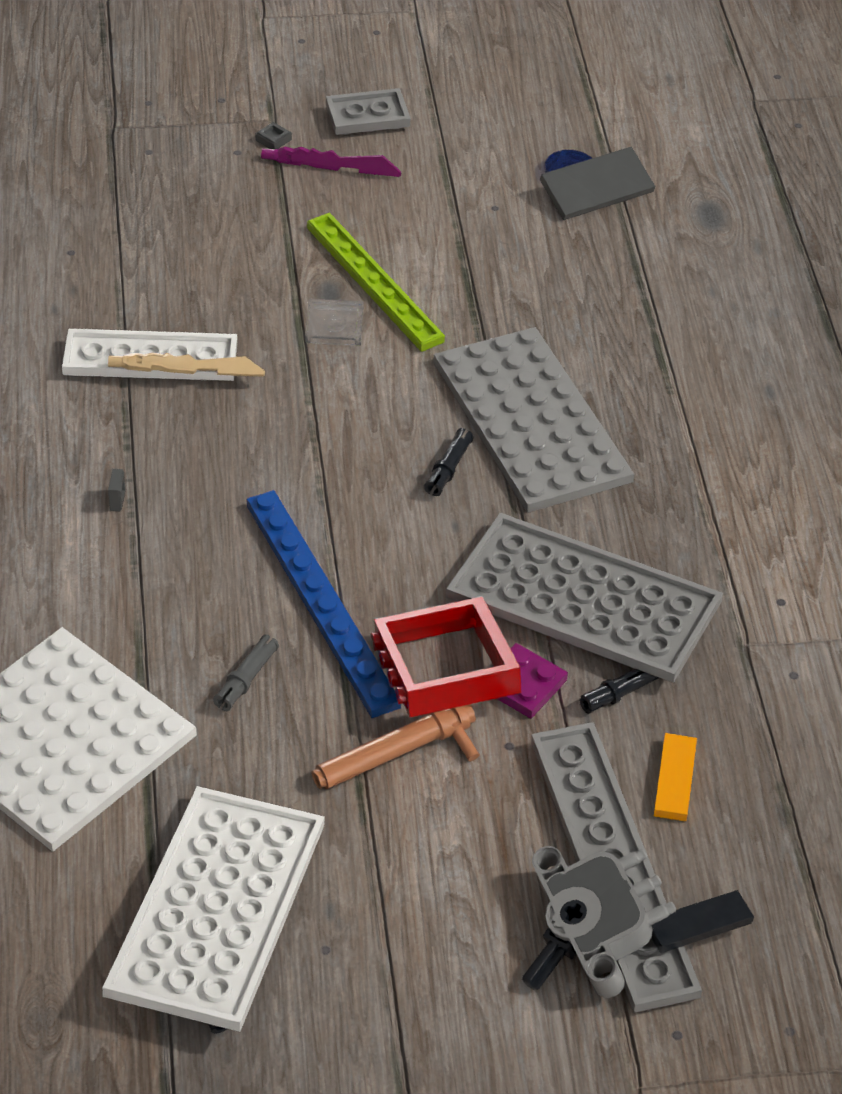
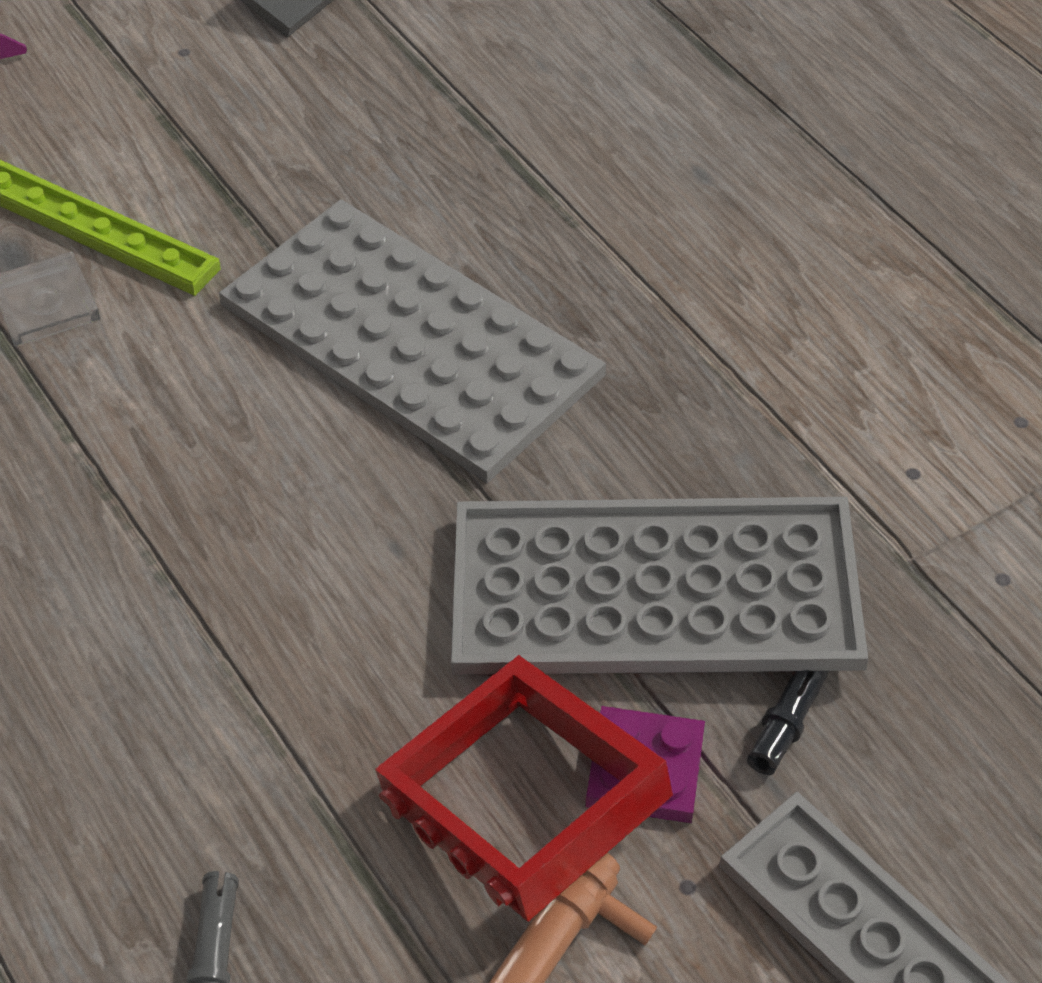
camera: 25 degrees left, 5 degrees up
(323, 604) = (274, 773): blue plate -> none
(444, 469) = (334, 465): black pin -> none
(675, 777) = (960, 826): light orange tile -> none

